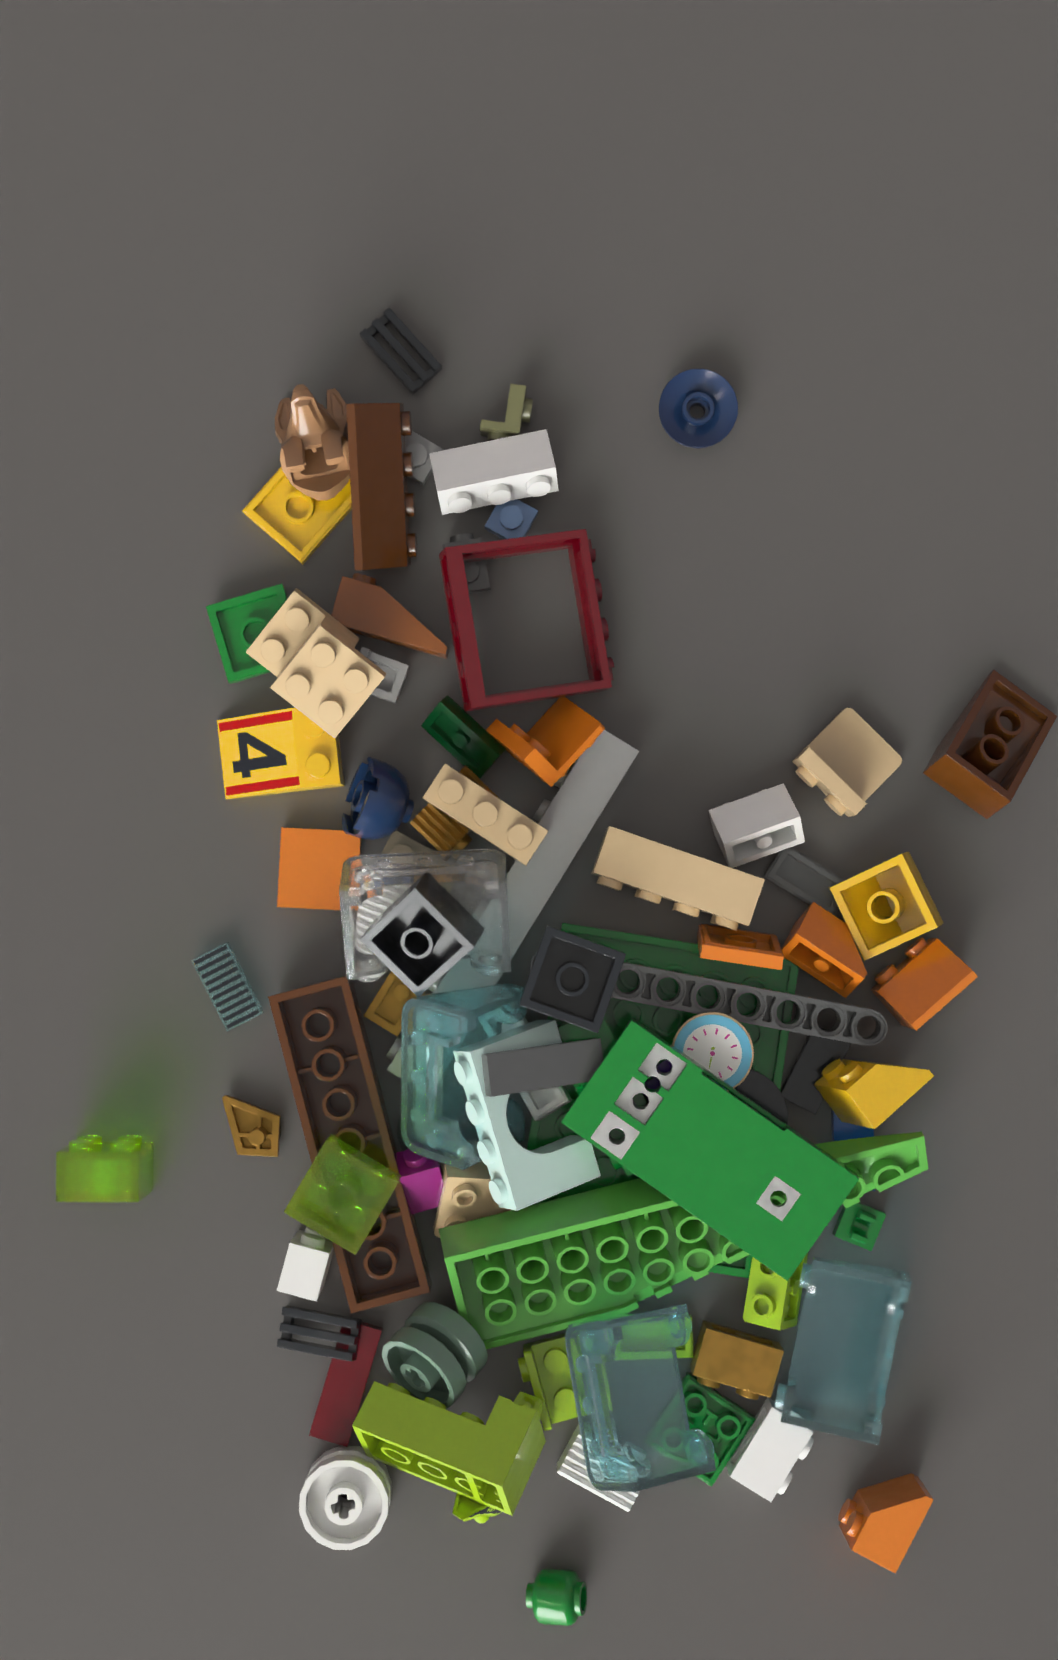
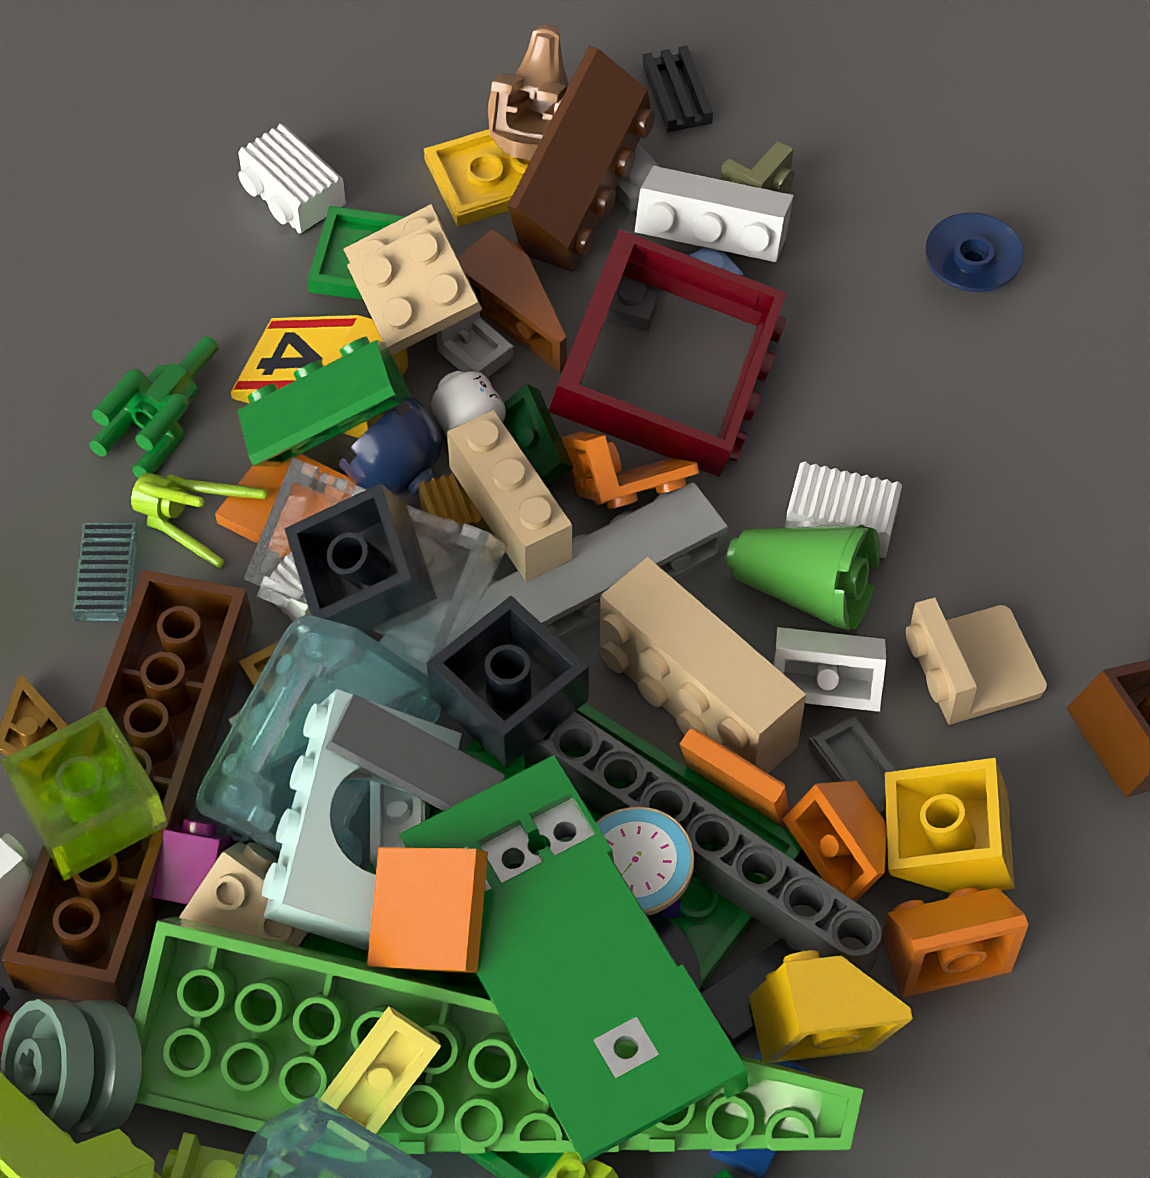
camera: 30 degrees right, 30 degrees down
(161, 593) = (290, 178): none -> white brick
(185, 841) = (153, 405): none -> green plant
(237, 917) = (166, 499): none -> lime plant
(319, 812) = (321, 403): none -> green slope
(406, 736) = (464, 398): none -> white head
(609, 1167) = (427, 909): none -> orange tile
(630, 1276) = (381, 1070): none -> light yellow plate
(706, 688) = (841, 498): none -> white brick
(706, 752) = (810, 568): none -> bright green cone

